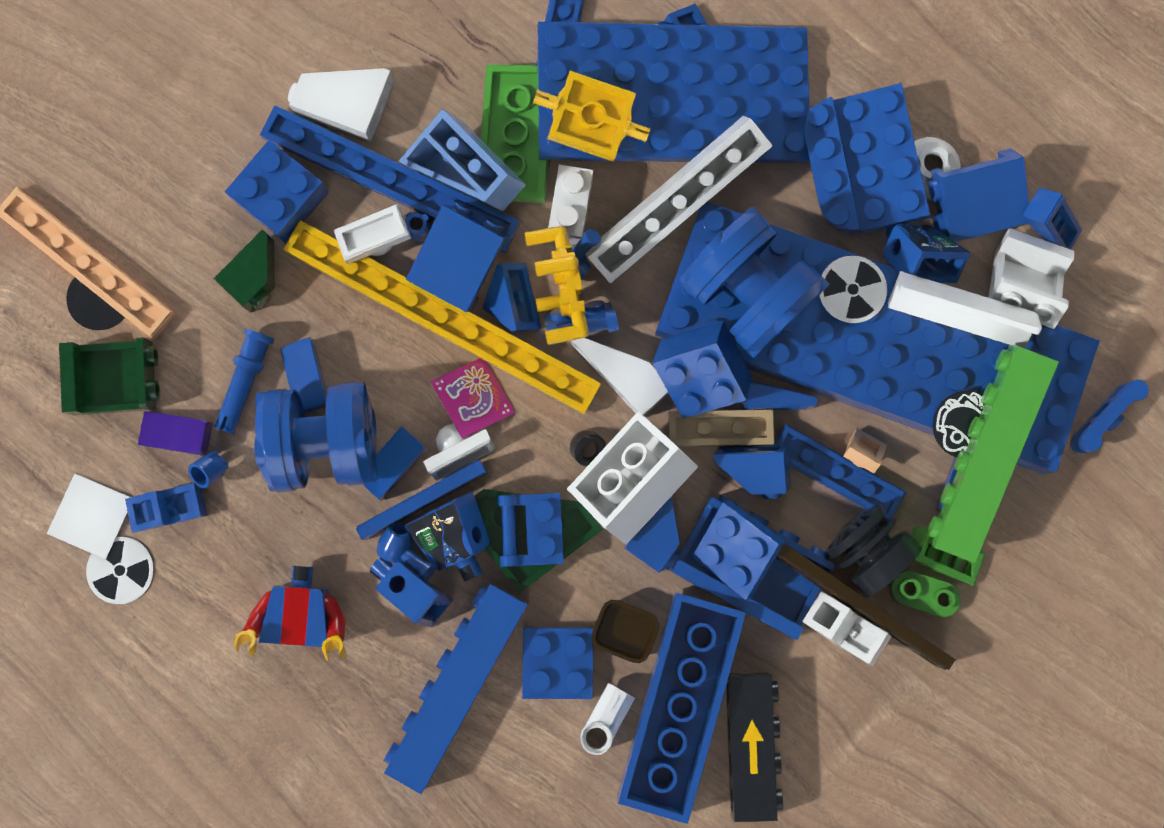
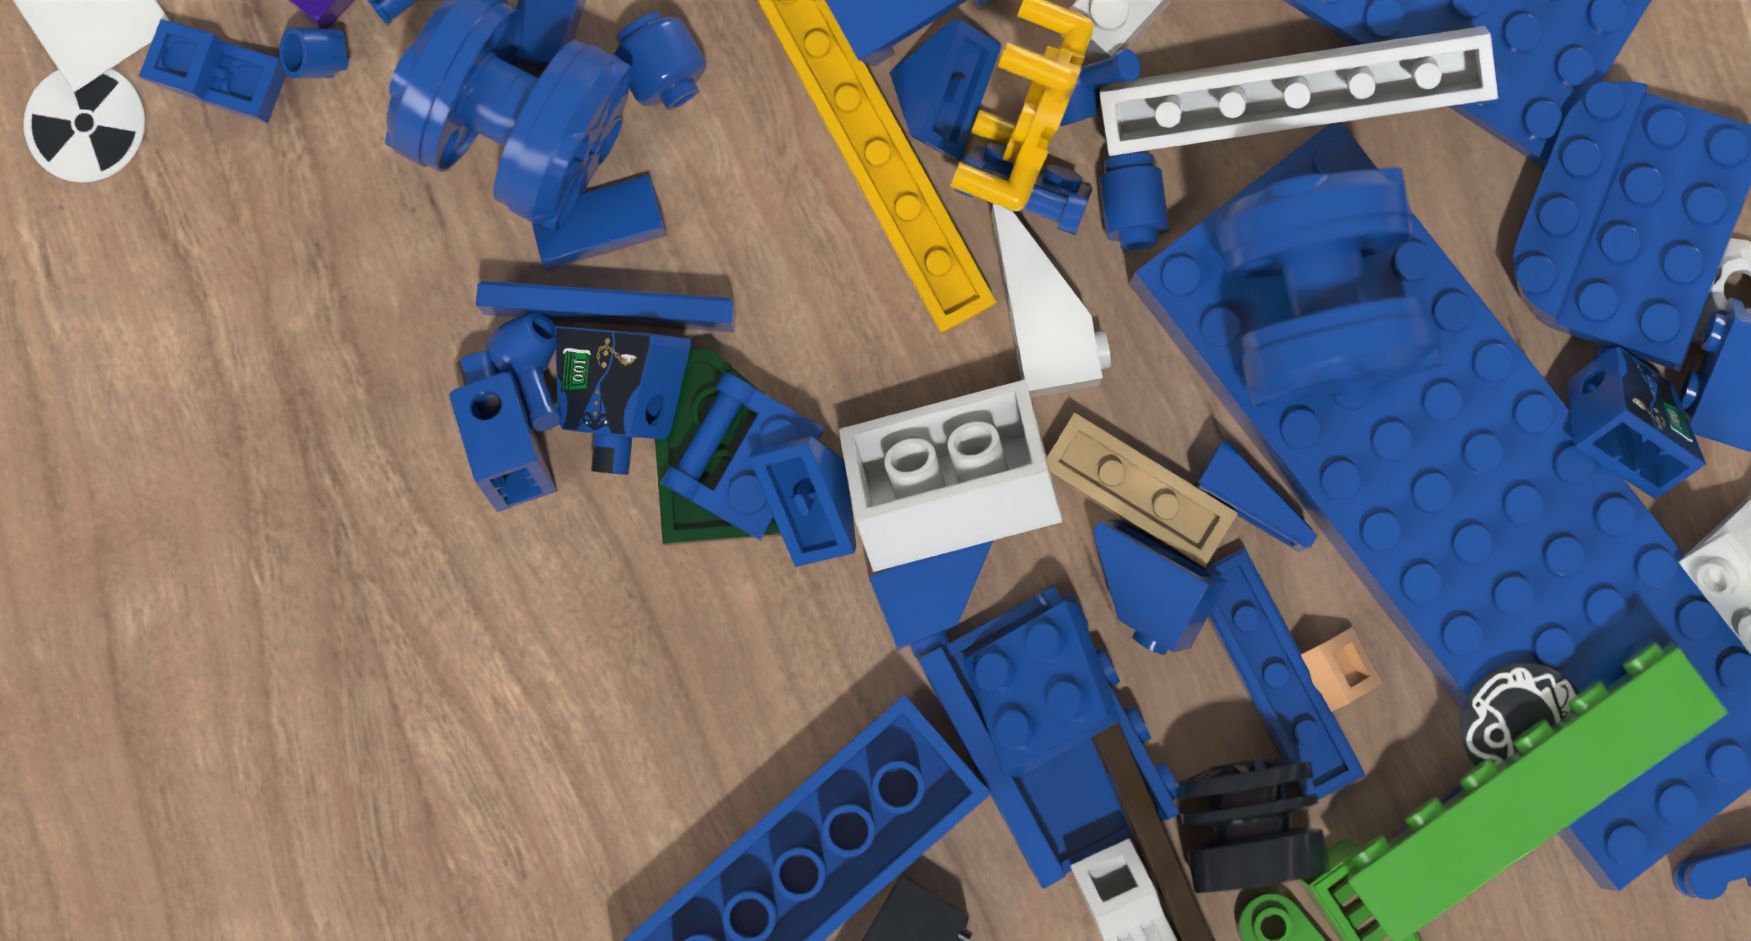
camera: 35 degrees right, 0 degrees up
(296, 617) = (302, 361): torso -> none
(374, 368) = (663, 60): none -> blue head
(455, 688) = (474, 624): blue brick -> none
(457, 451) = (710, 265): white tile -> none
(472, 397) = (785, 199): dark pink sticker -> none
(557, 663) = (653, 689): blue plate -> none
(574, 530) = (807, 498): none -> blue slope
(580, 440) = (906, 371): black piece -> none
(608, 716) = (678, 818): white piece -> none
(625, 631) = (788, 705): dark brown piece -> none
(633, 296) = (1133, 200): none -> blue brick
(702, 370) = (1166, 378): blue brick -> none
(855, 289) = (1482, 403): white sticker -> none
(964, 310) = (1634, 543): white panel -> none

